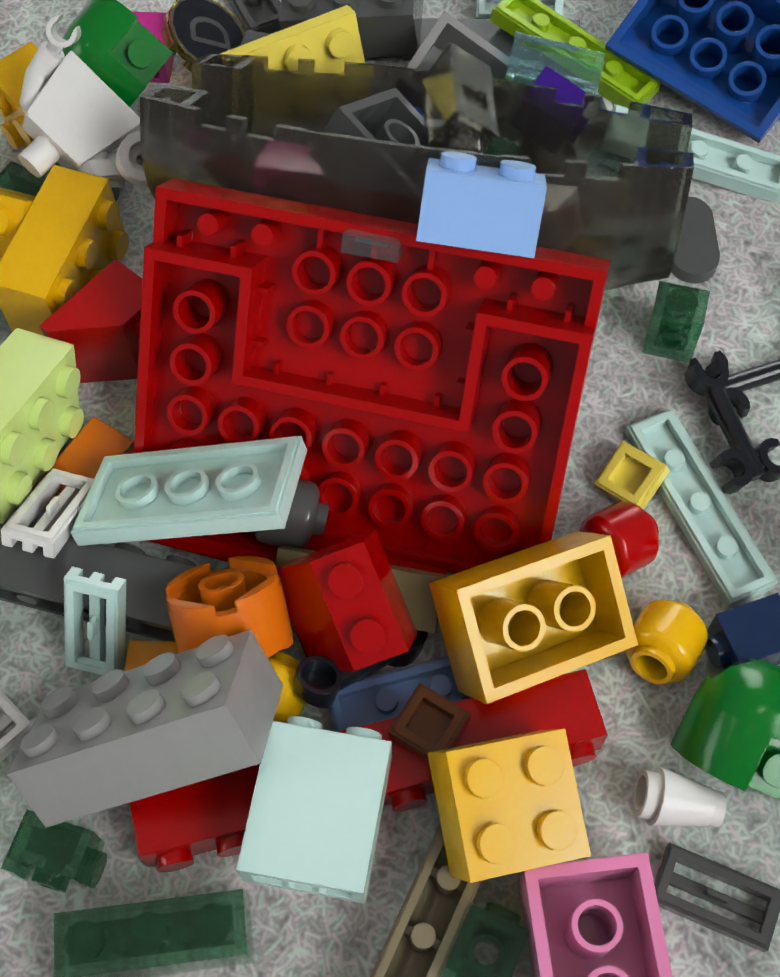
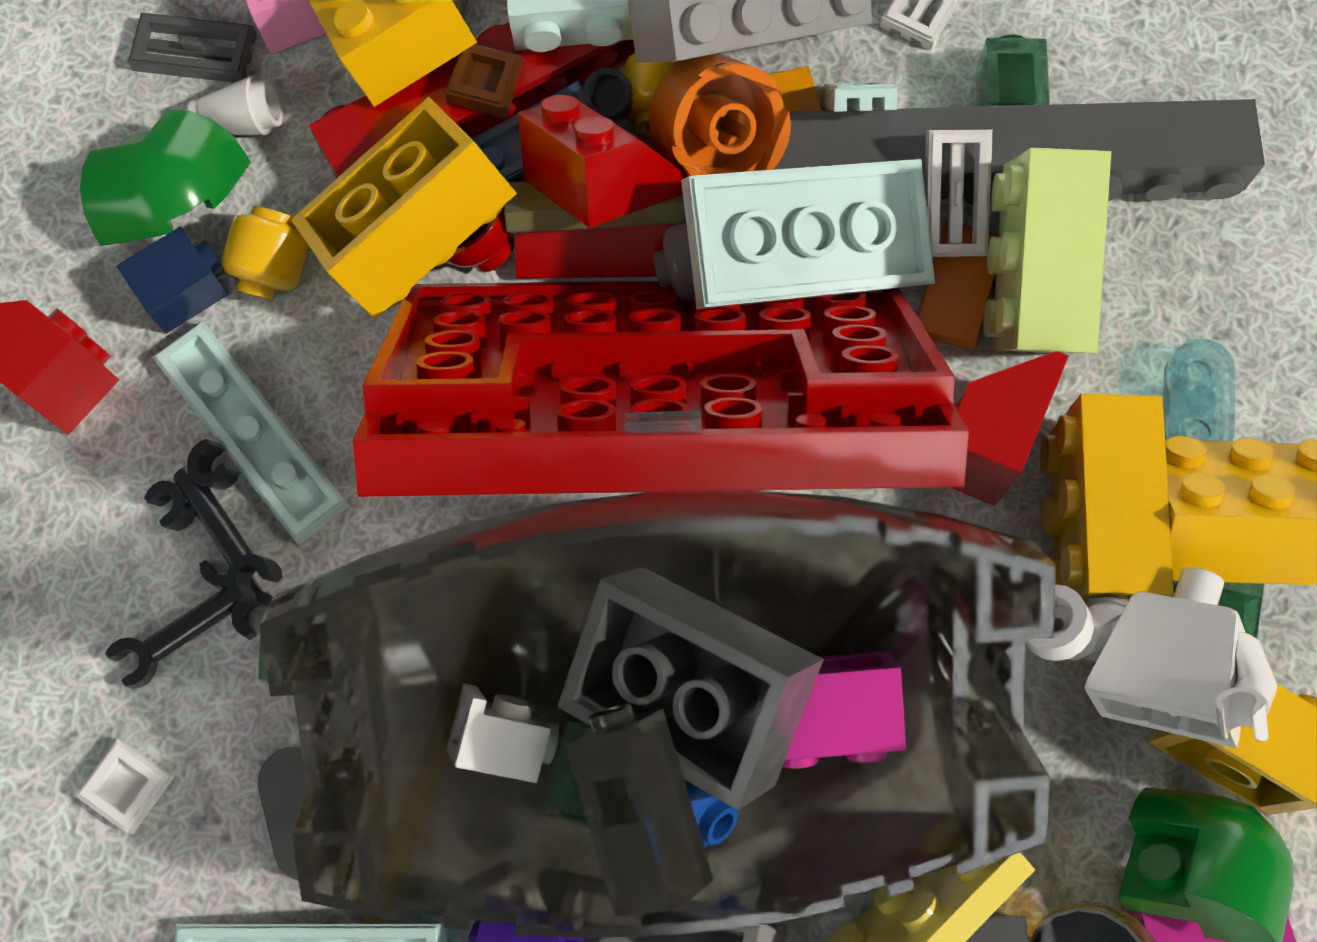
camera: 165 degrees right, 10 degrees up
(482, 205) = (527, 477): light blue brick -> none
(631, 475) = (326, 435): light yellow tile -> none
(631, 531) = (332, 349): red head -> none

